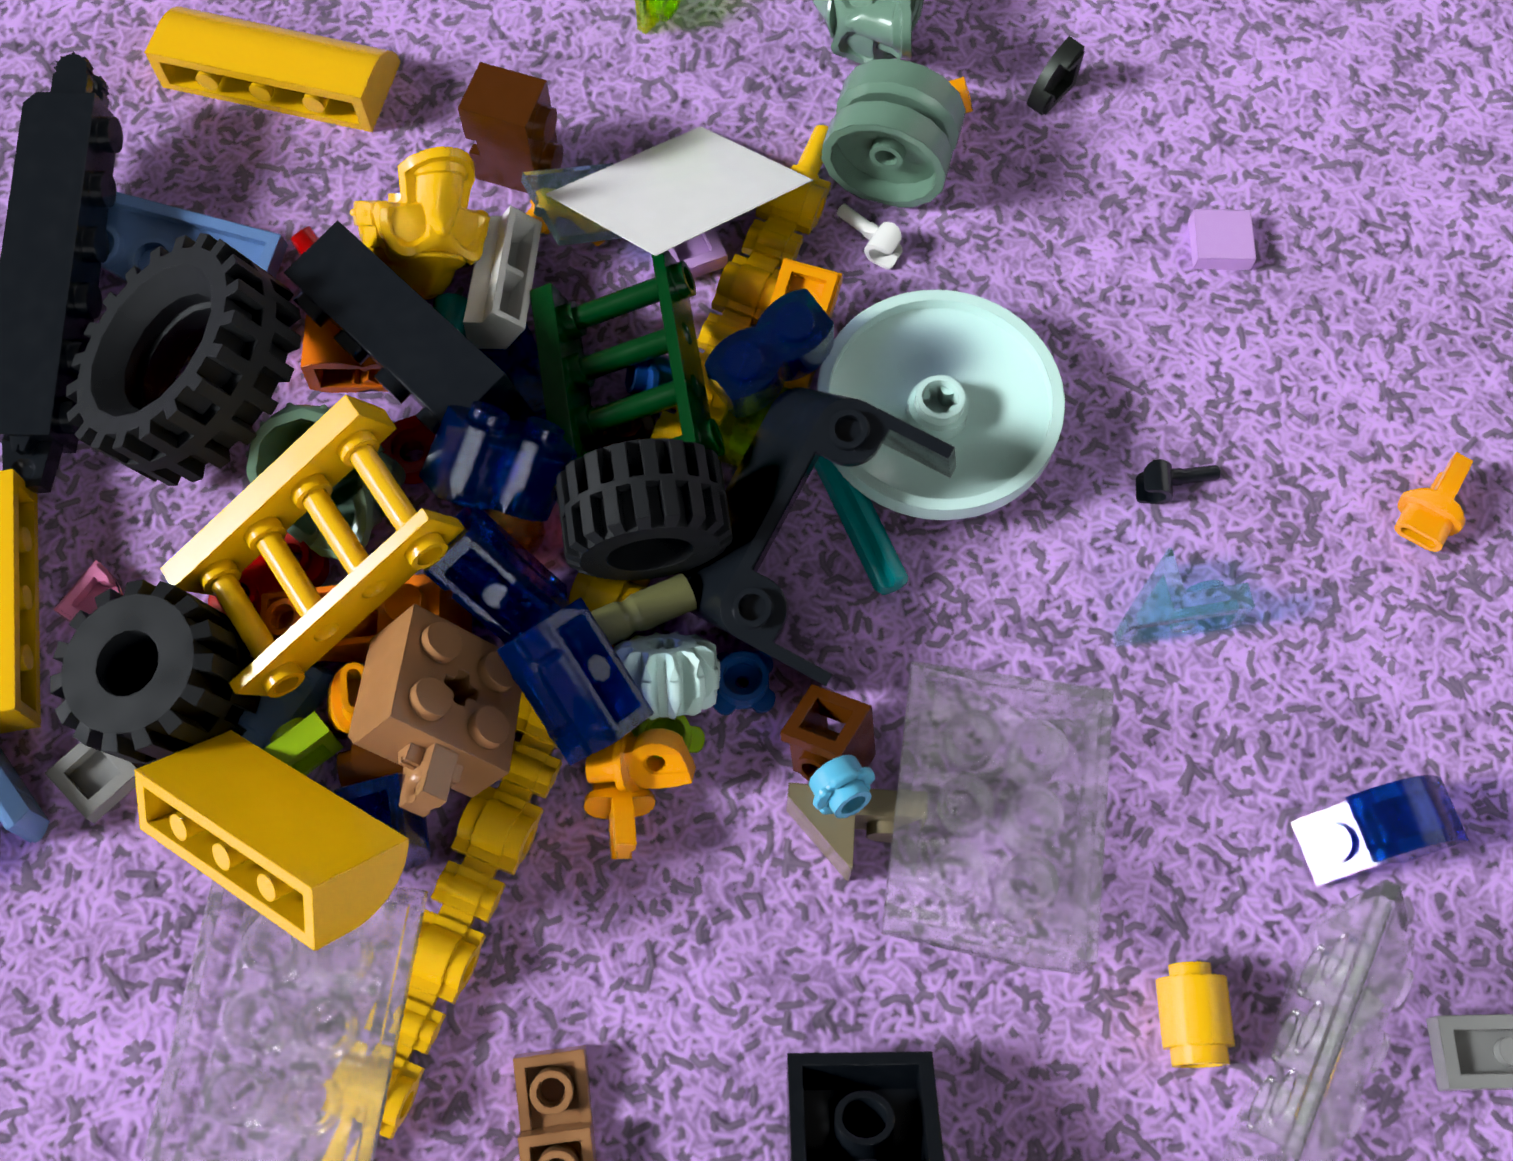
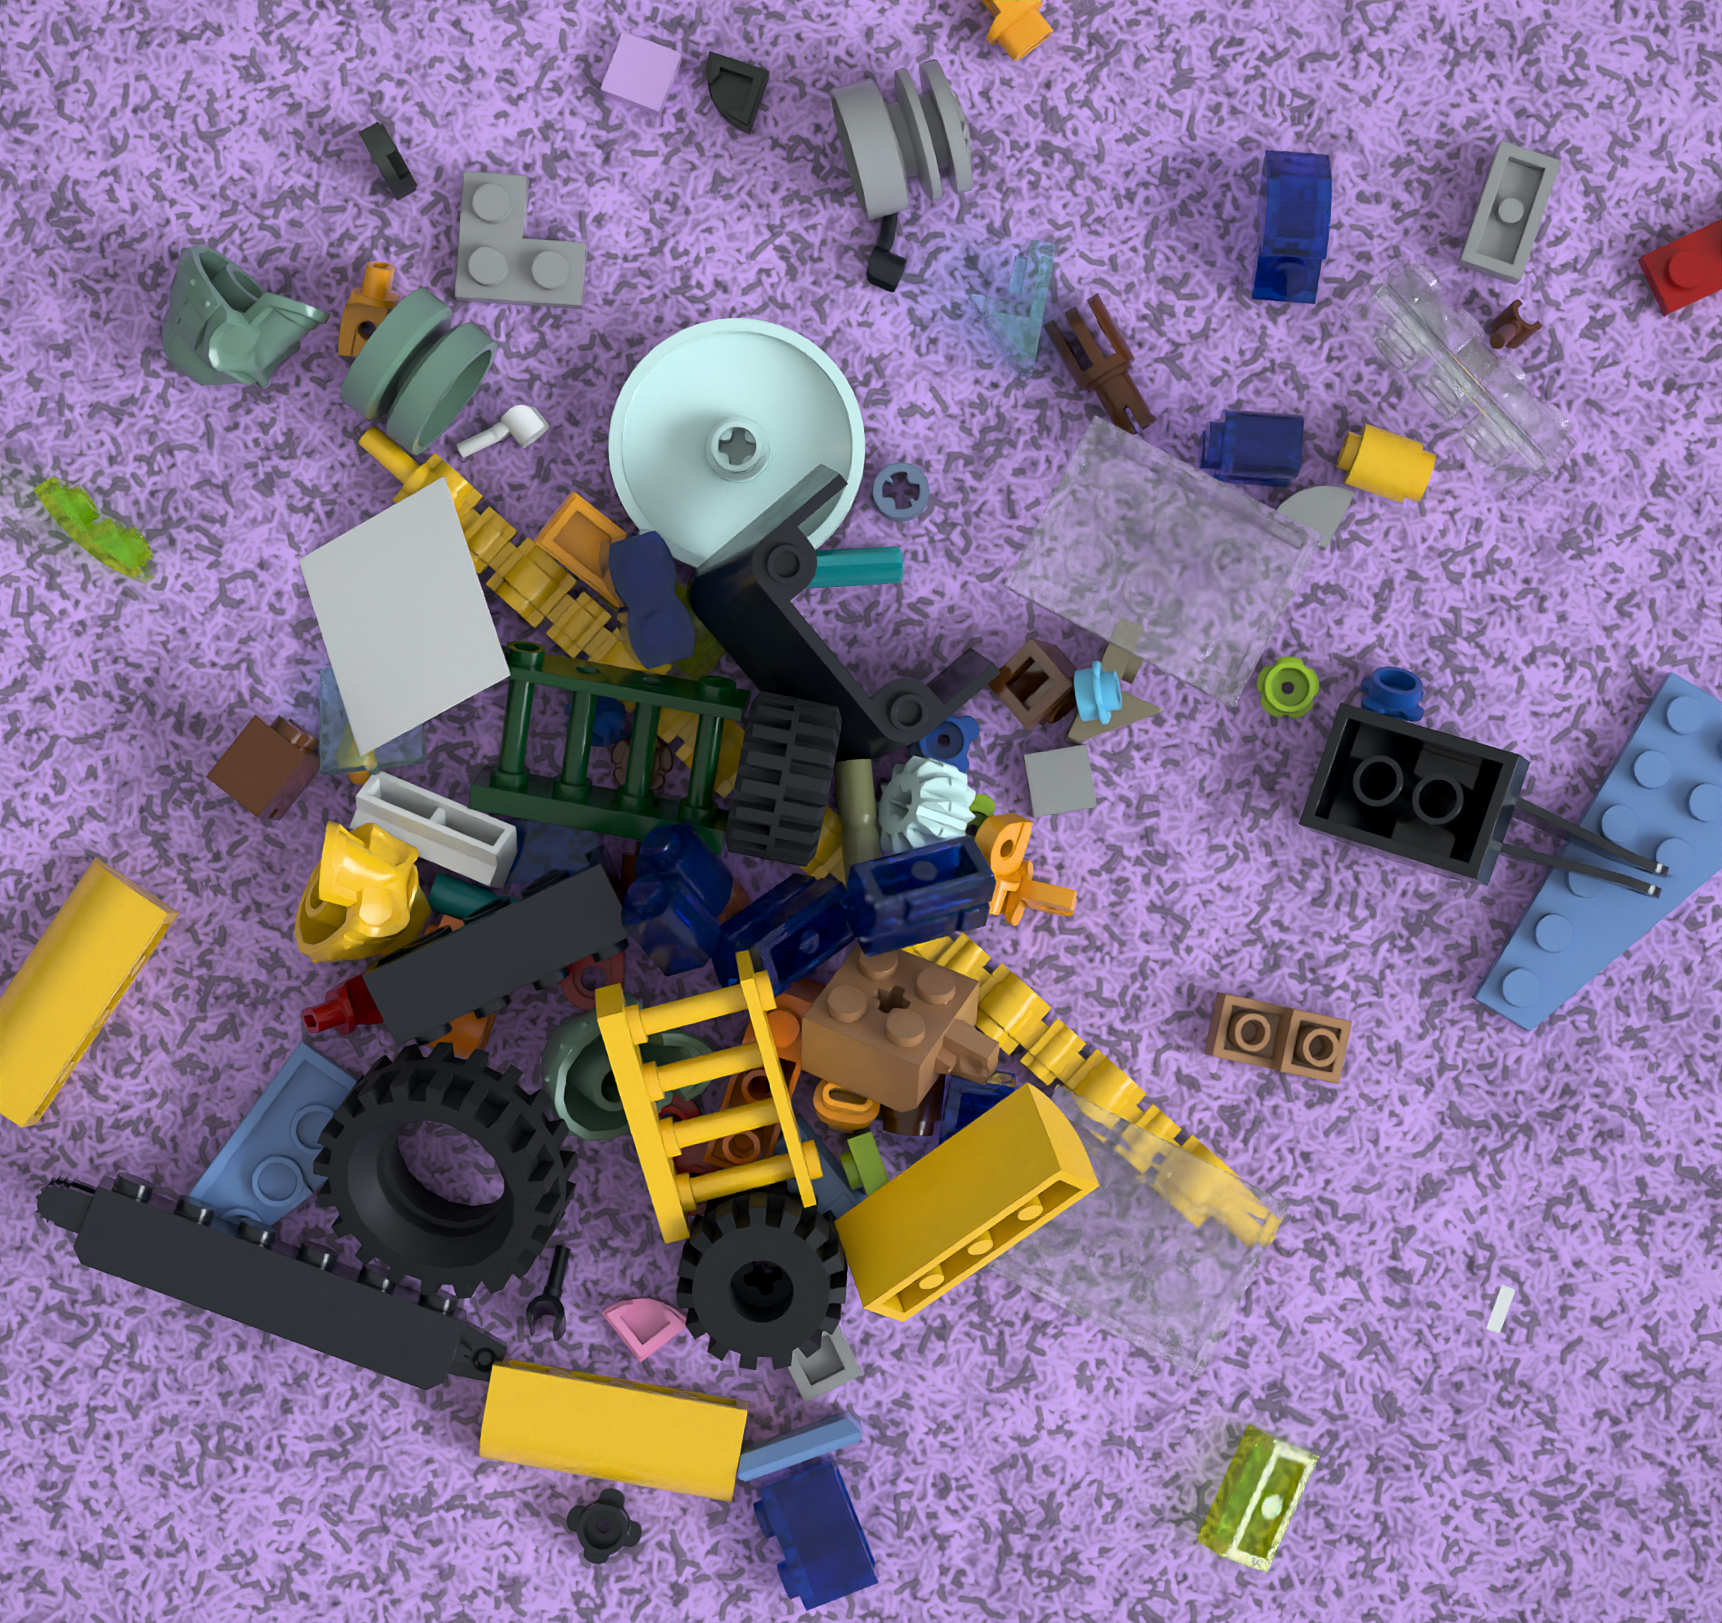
camera: 70 degrees left, 20 degrees up
(94, 512) = (549, 1301): none -> black hand
(744, 805) = (1059, 781): none -> light grey tile
(943, 996) = (1304, 684): none -> lime plate
(964, 1115) = (1393, 693): none -> blue plate
(968, 546) = (886, 505): none -> sand blue bush
(1018, 183) = (497, 259): none -> light grey plate
(1119, 967) = (1319, 509): none -> light grey tile
(1152, 861) = (1253, 448): none -> clear blue brick
(1157, 703) = (1108, 375): none -> reddish brown arm
(1248, 315) = (736, 89): none -> pearl dark grey tile
(1280, 441) = (902, 139): none -> light grey wheel
(1394, 1101) = (1511, 329): none -> reddish brown hand

